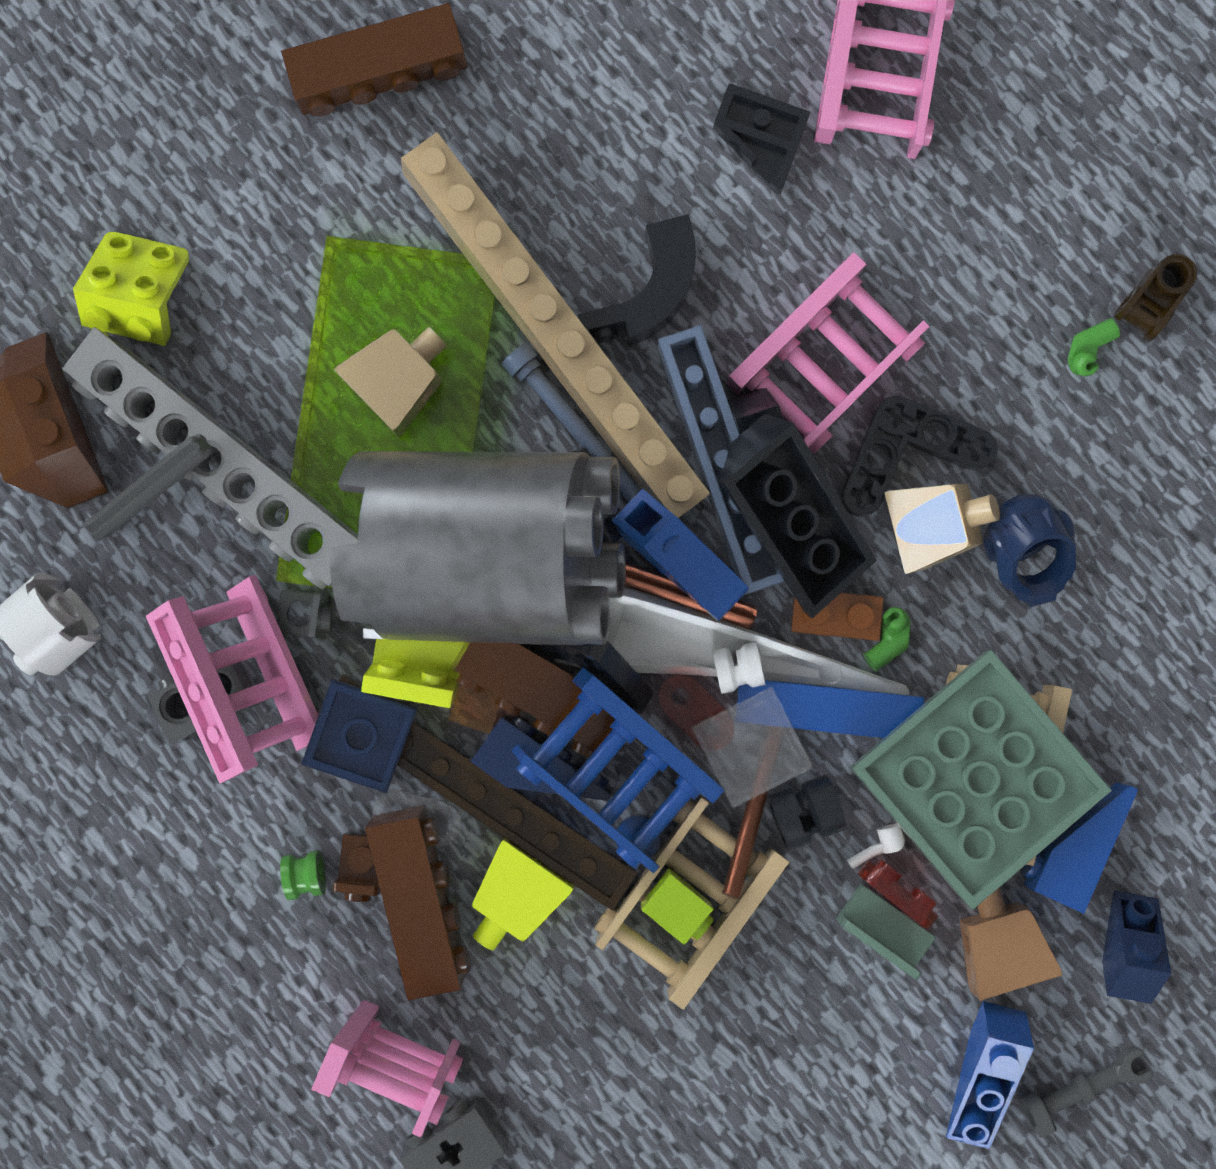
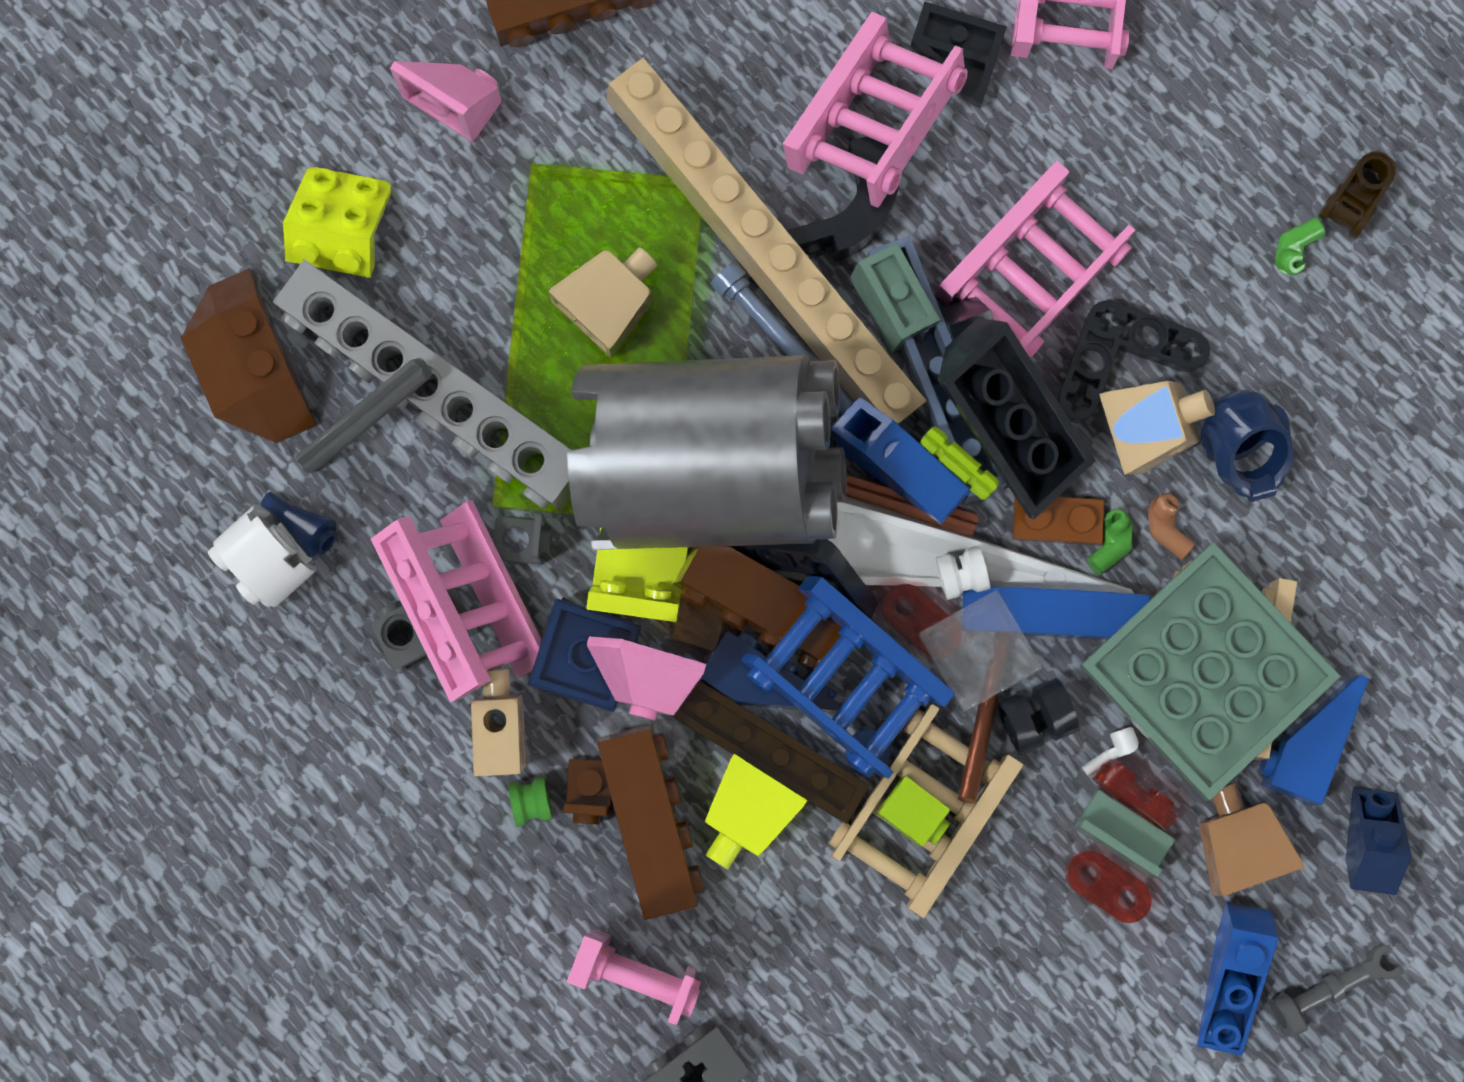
camera: 10 degrees left, 5 degrees down
(96, 598) = (310, 531): none -> dark blue cone
(248, 161) = (449, 94): none -> bright pink slope
(270, 808) = (495, 746): none -> tan torso
(416, 764) = (645, 676): none -> bright pink slope
(652, 159) = (852, 78): none -> bright pink fence
(682, 386) = (893, 296): none -> sand green panel
(739, 560) = (959, 463): none -> lime axle
(866, 980) = (1107, 886): none -> clear red plate
(941, 625) = (1163, 526): none -> nougat arm

